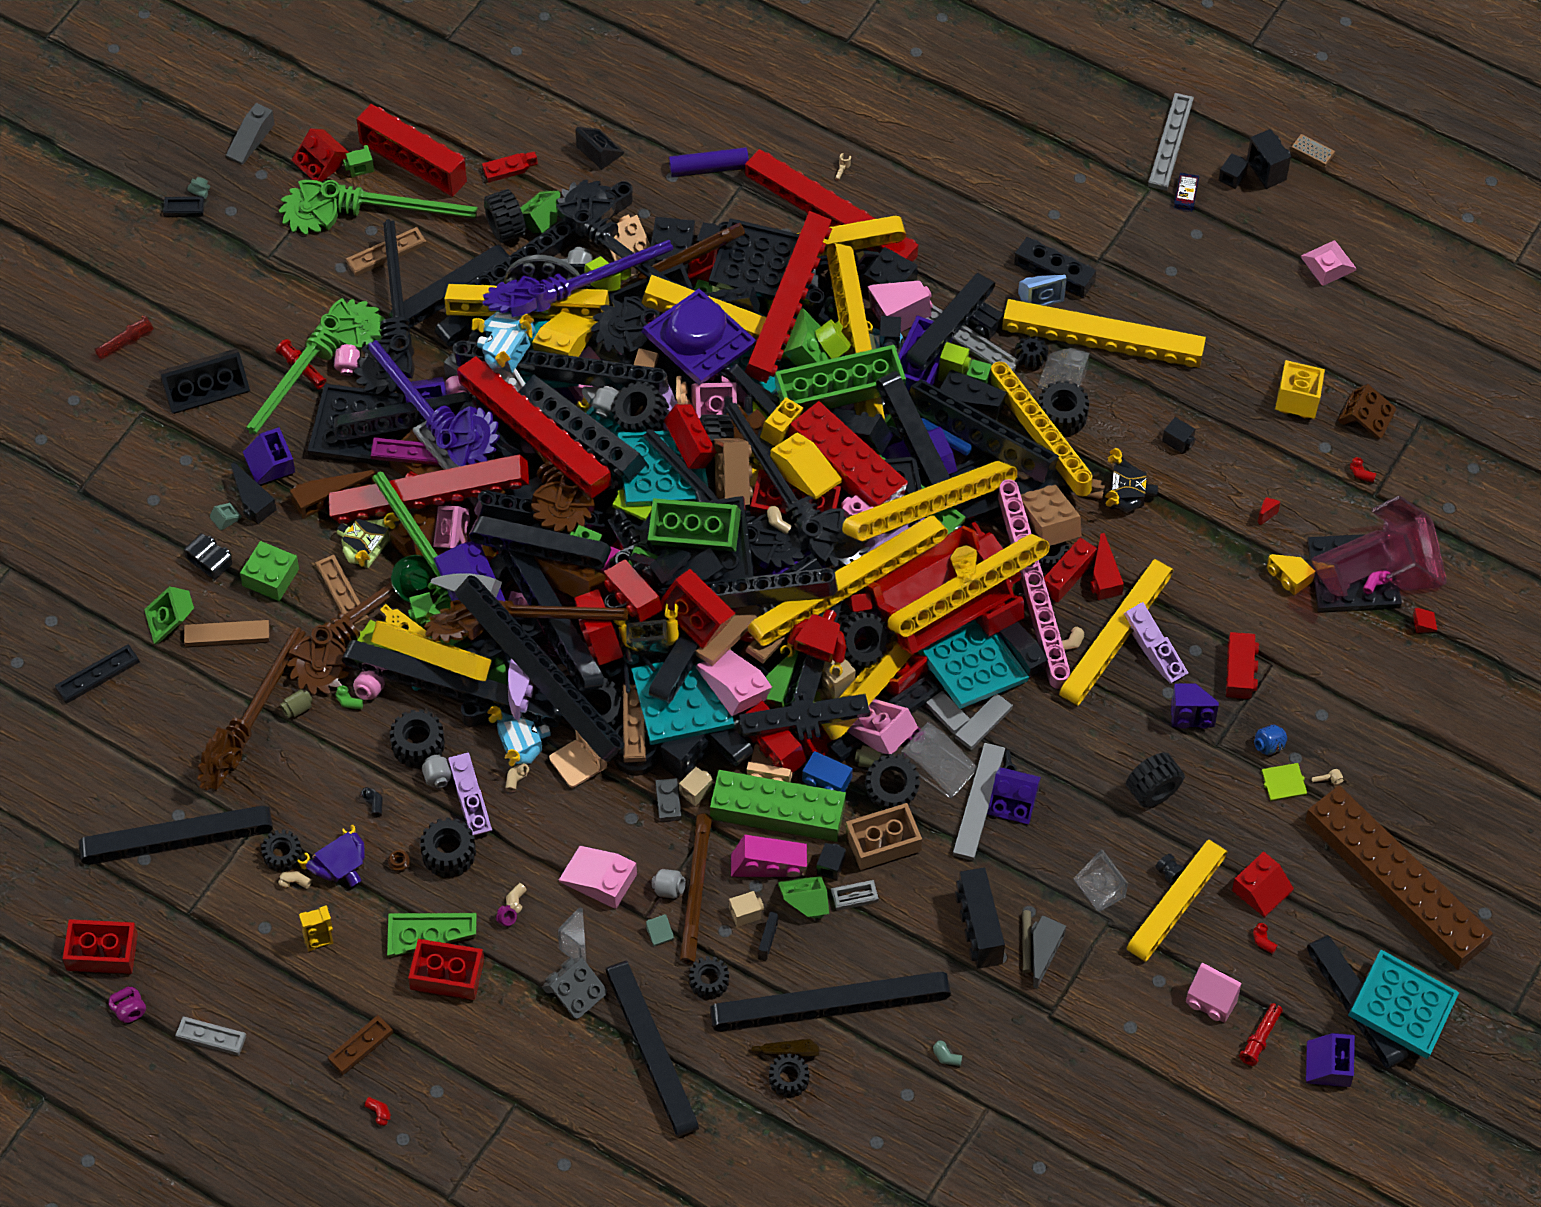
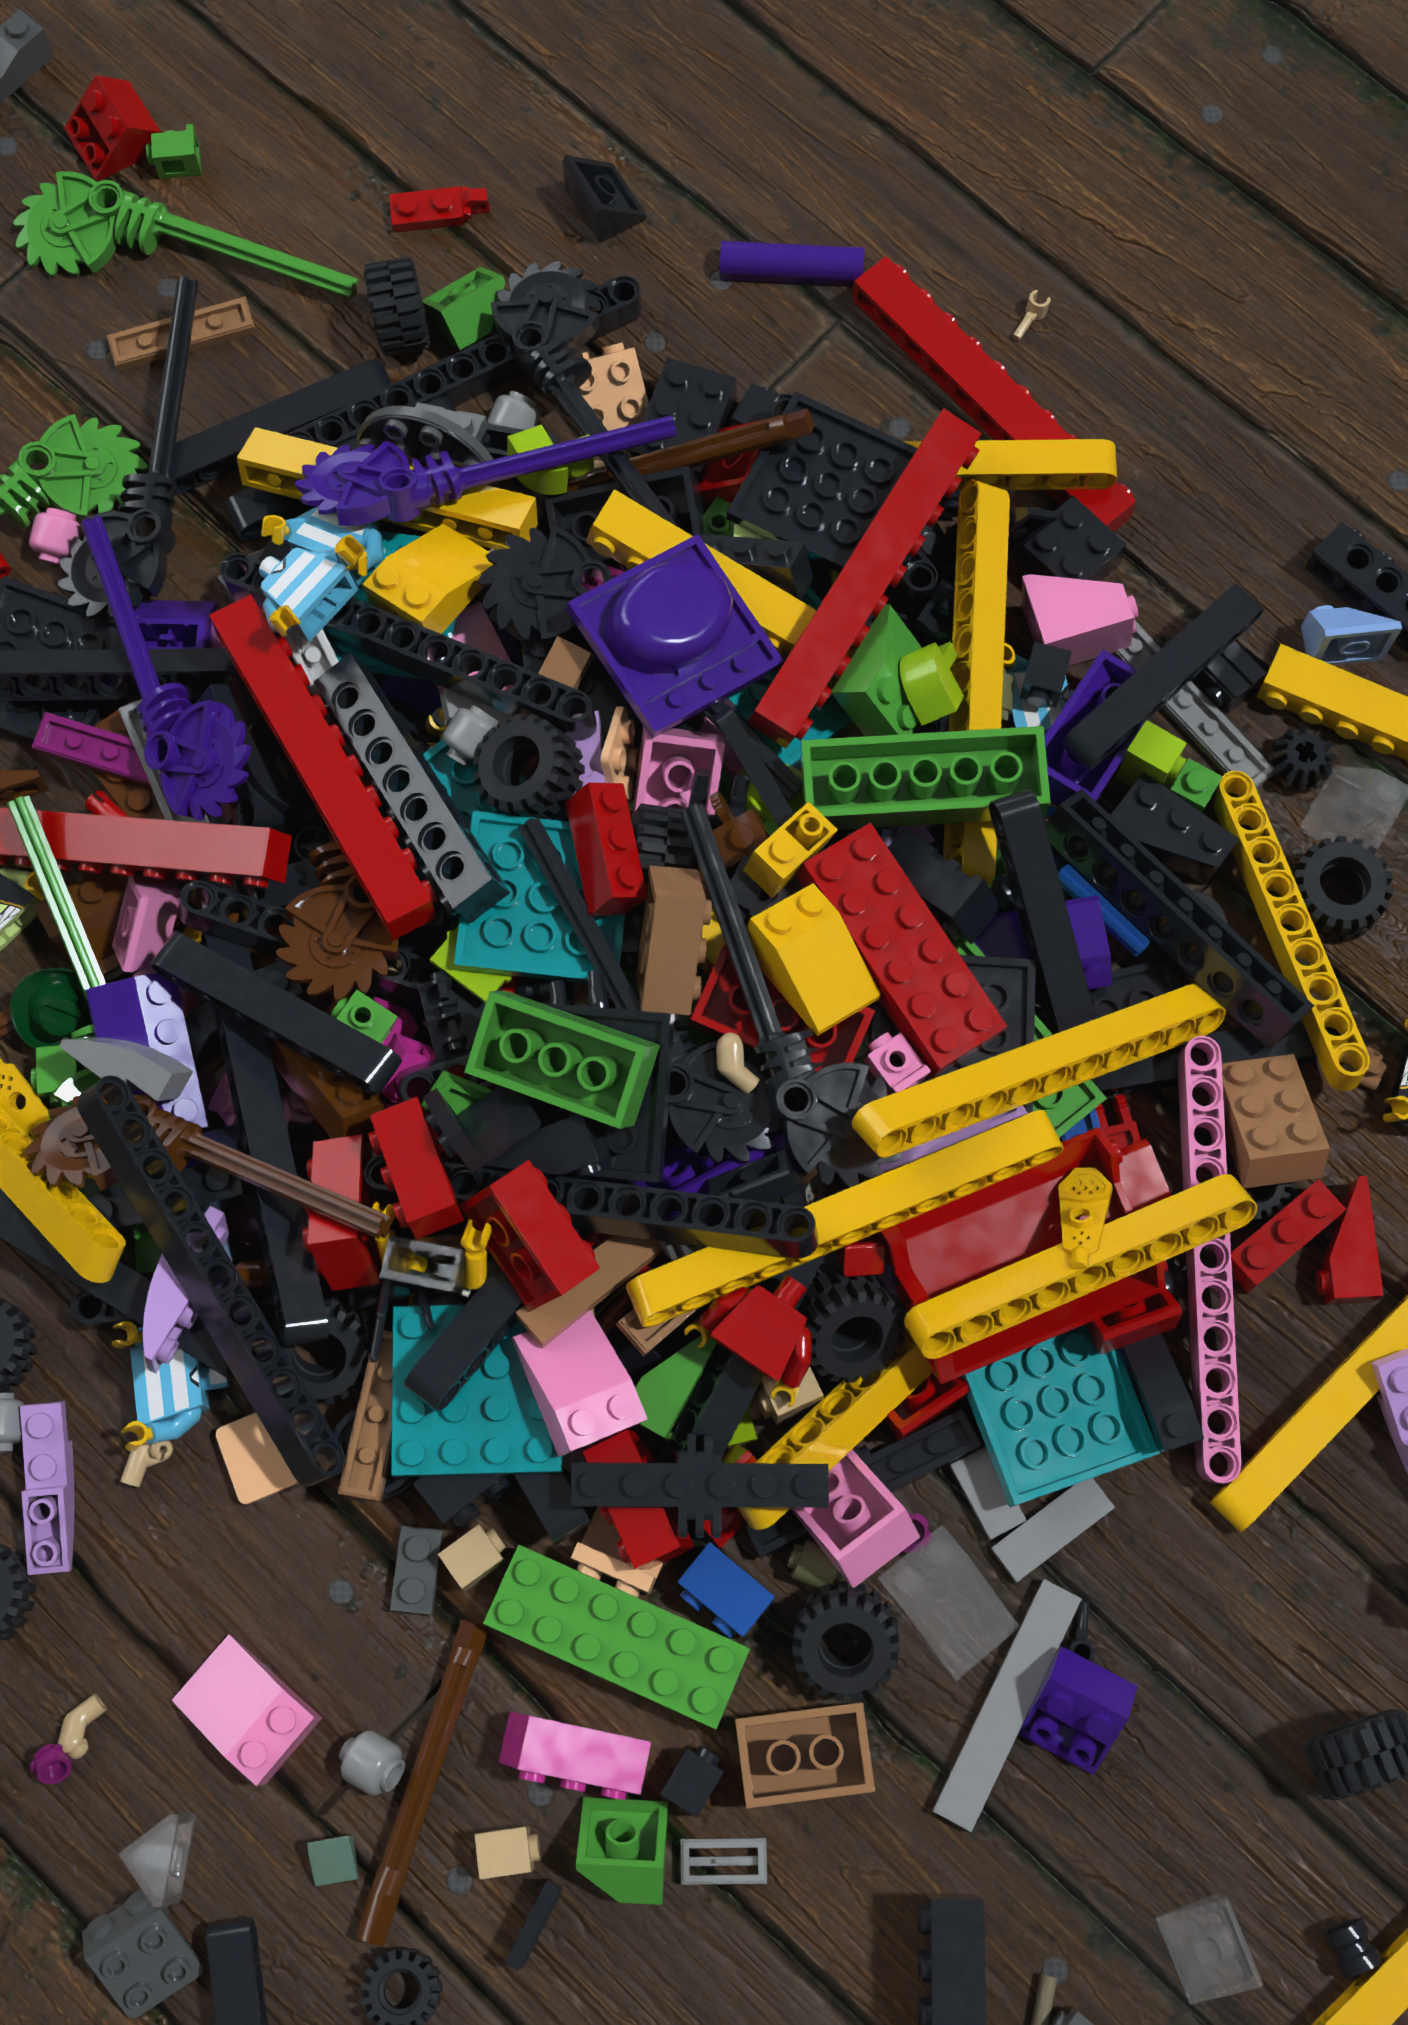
camera: 15 degrees right, 15 degrees up
(412, 150) = (268, 146): red brick -> none
(1074, 640) = (1264, 1386): tan arm -> none

